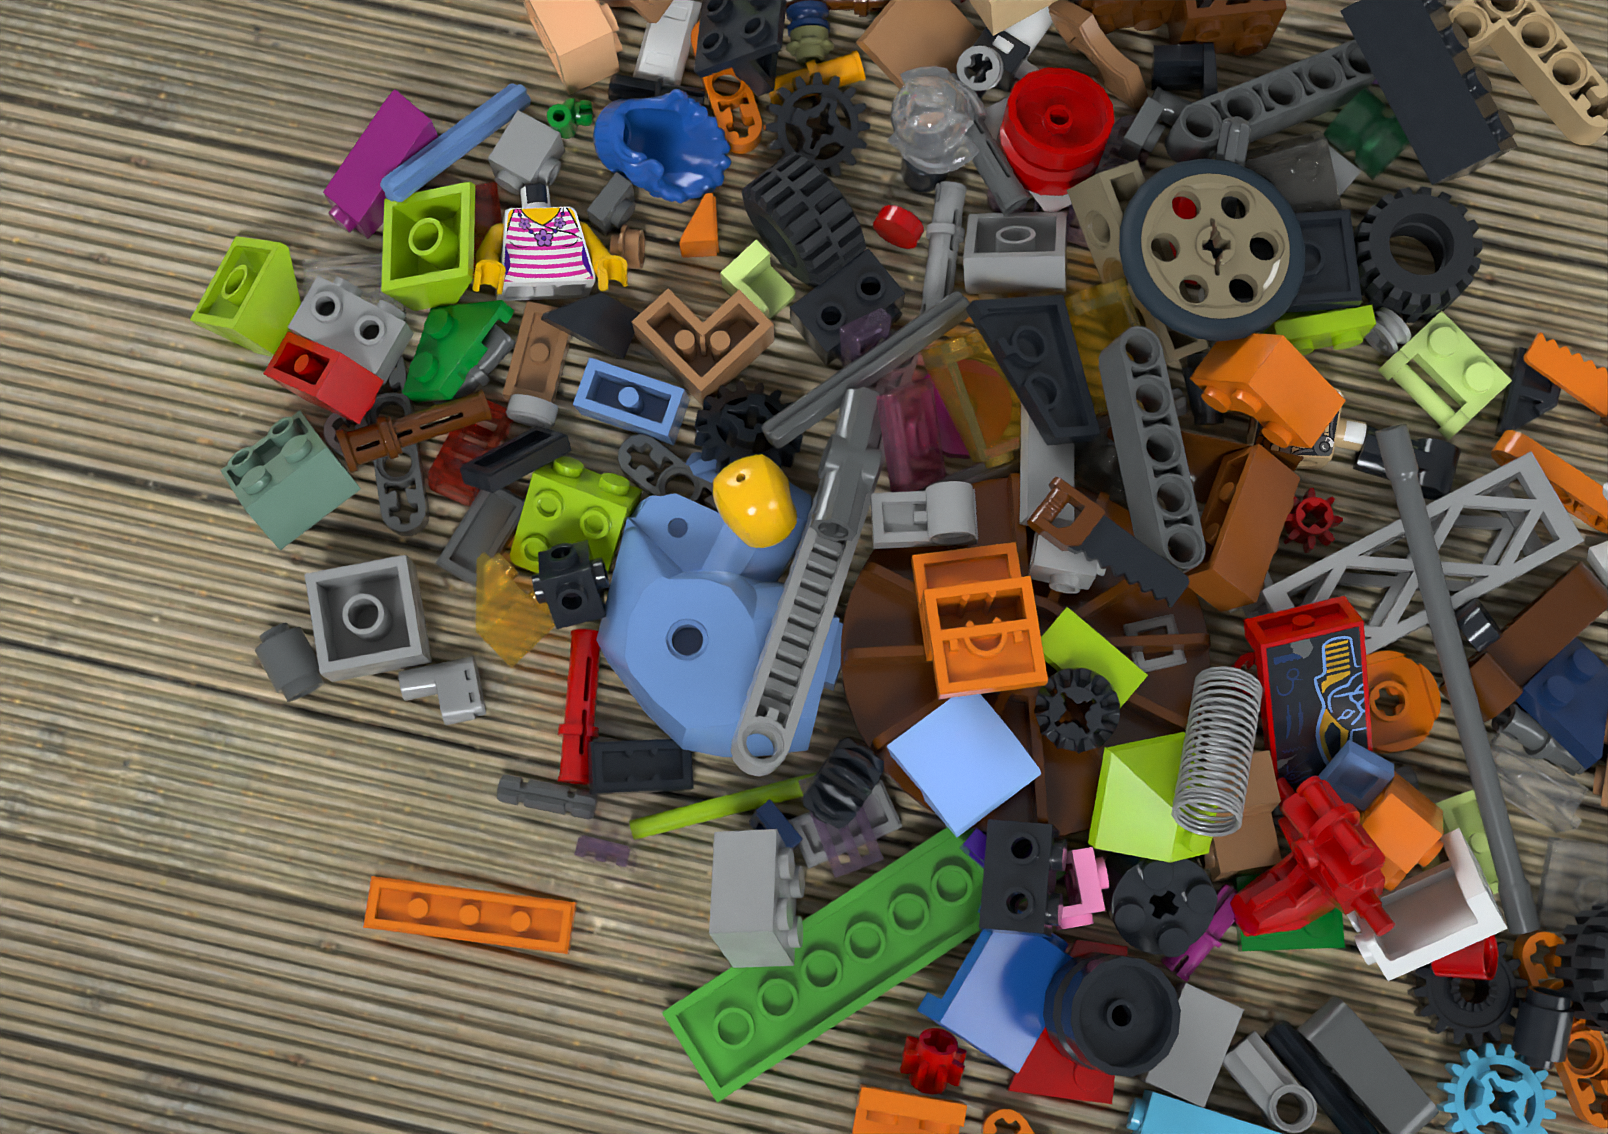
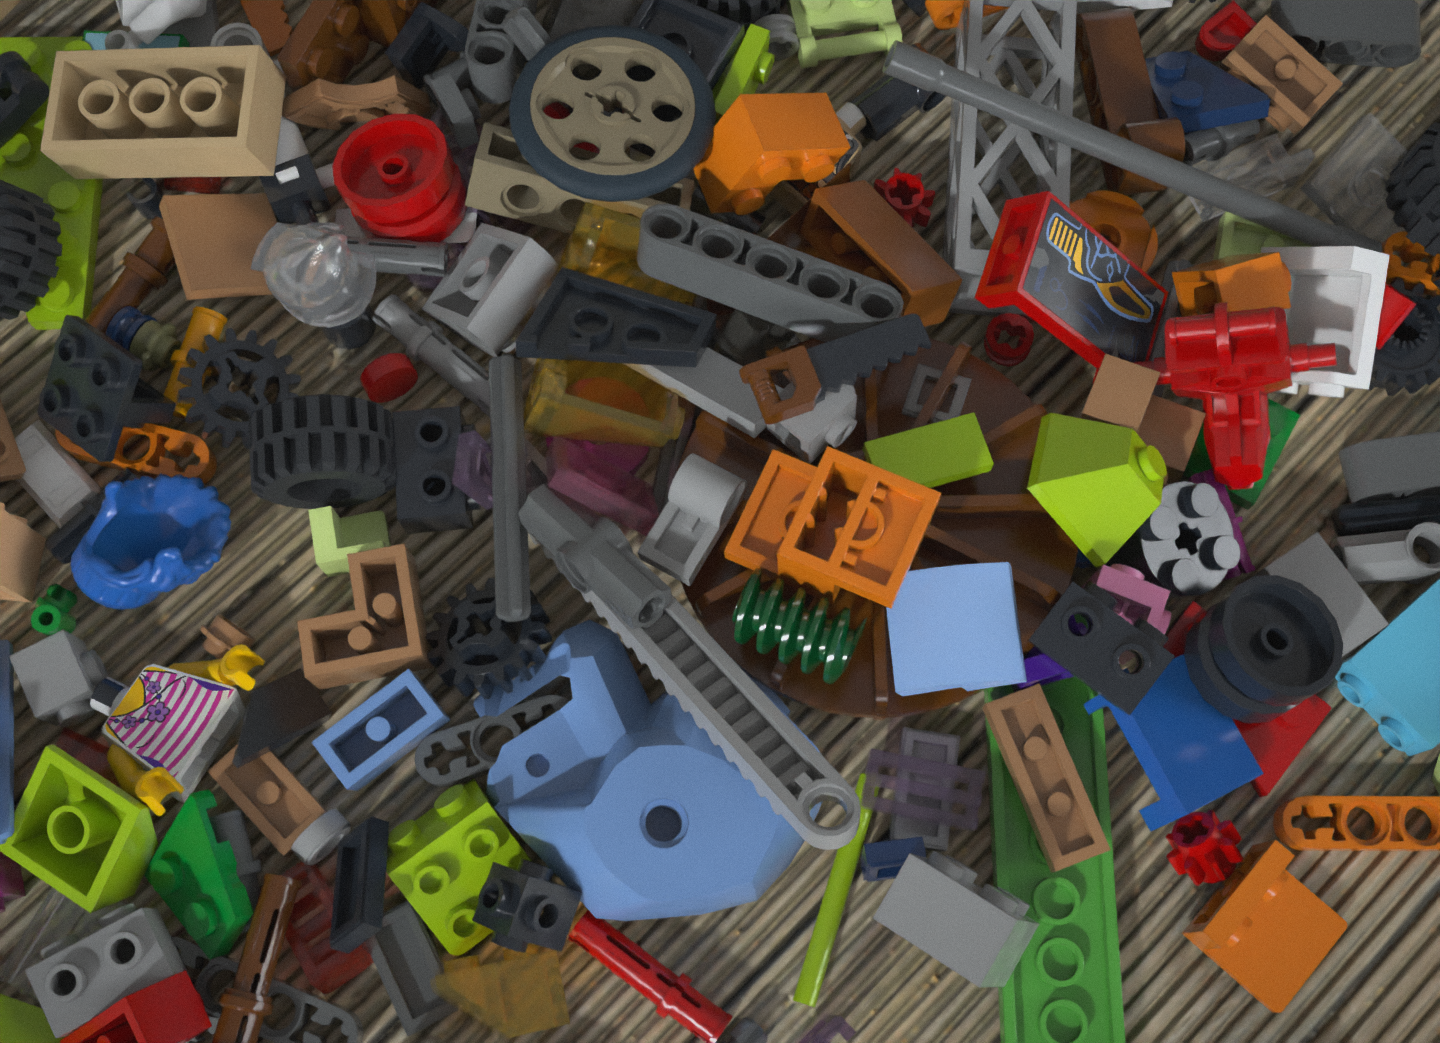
camera: 60 degrees left, 5 degrees down
(612, 205) = (173, 627): dark grey plate -> none
(639, 767) = (747, 957): black plate -> none
(701, 234) = (264, 558): orange slope -> none
(755, 501) = (578, 673): yellow helmet -> none
(843, 783) = (898, 760): black gear -> none
(885, 643) = (795, 627): none -> dark green piece
(906, 905) = (1045, 778): none -> medium nougat plate
(968, 60) = (310, 199): light grey bush -> none
(1081, 686) = (953, 473): black gear -> none
(1218, 752) = (1133, 422): light grey piece -> none
(1357, 774) = (1162, 296): medium blue plate -> none
(1478, 625) = (1100, 112): black beam -> none

